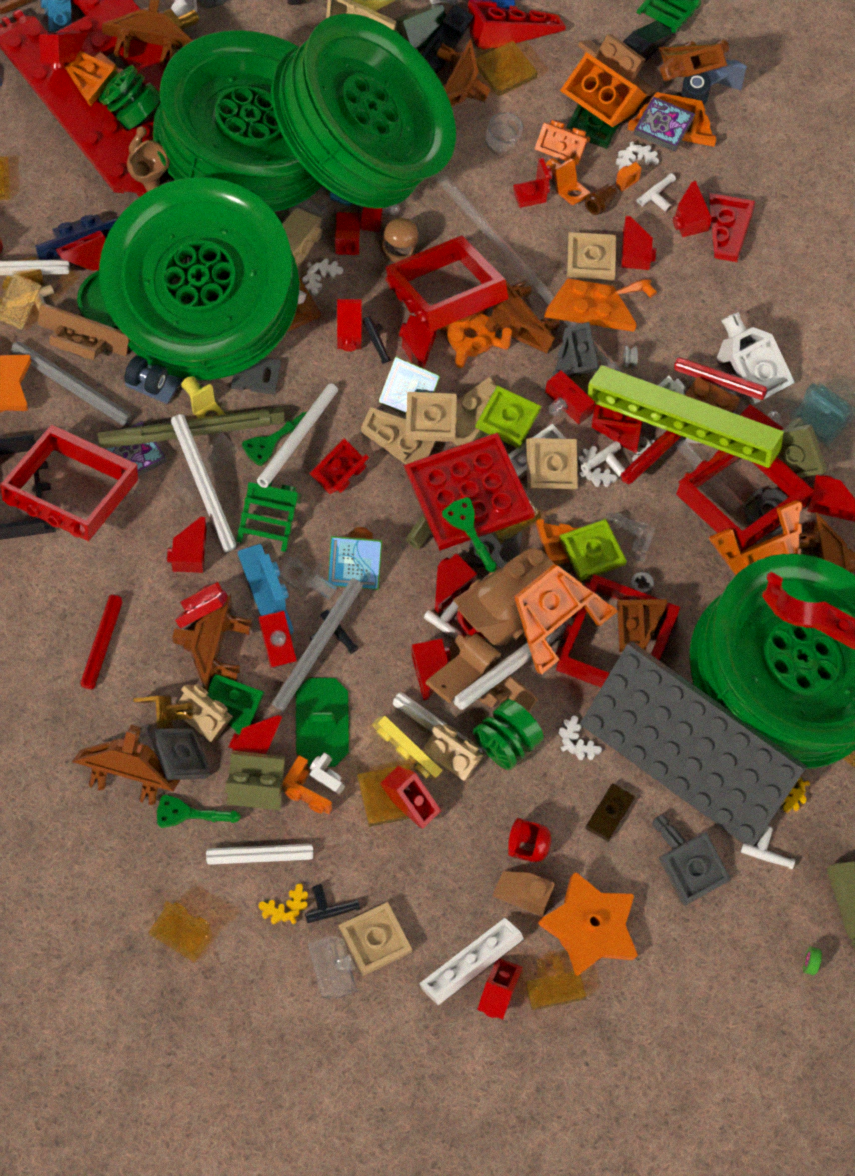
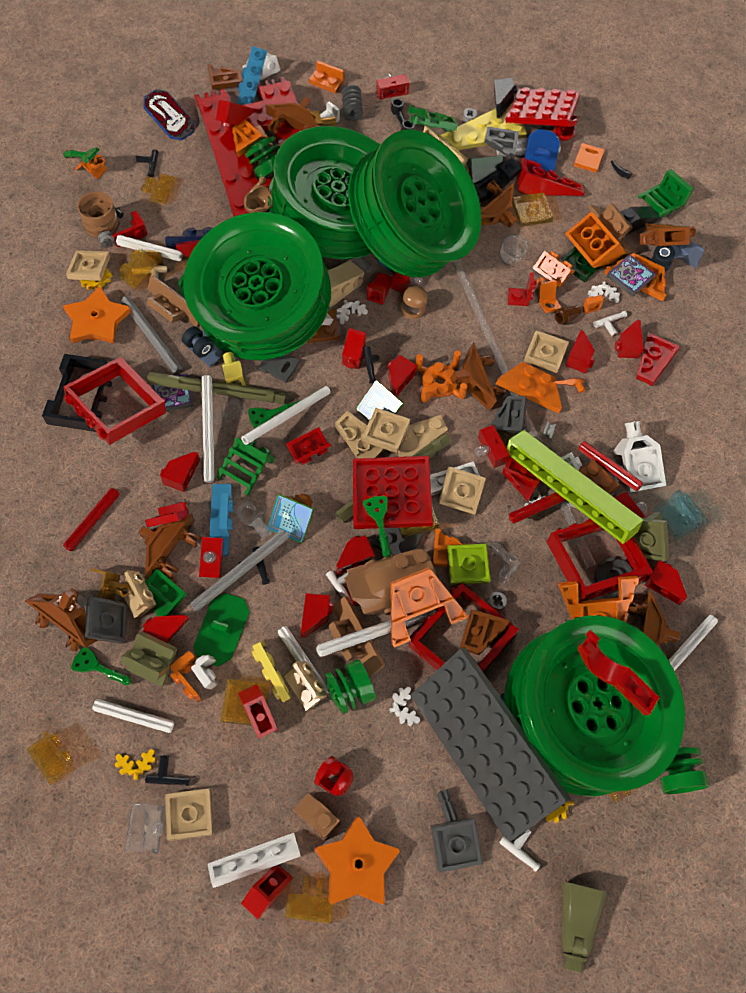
camera: 20 degrees right, 0 degrees up
(473, 662) = (343, 622): medium nougat door -> none
(489, 293) = (437, 356): red window -> none
(508, 416) = (442, 447): lime tile -> none
(596, 477) = (490, 498): white animal -> none
(605, 455) = (506, 496): white piece -> none
(610, 812) = (407, 773): dark brown plate -> none
(812, 960) = (524, 958): bright green tile -> none

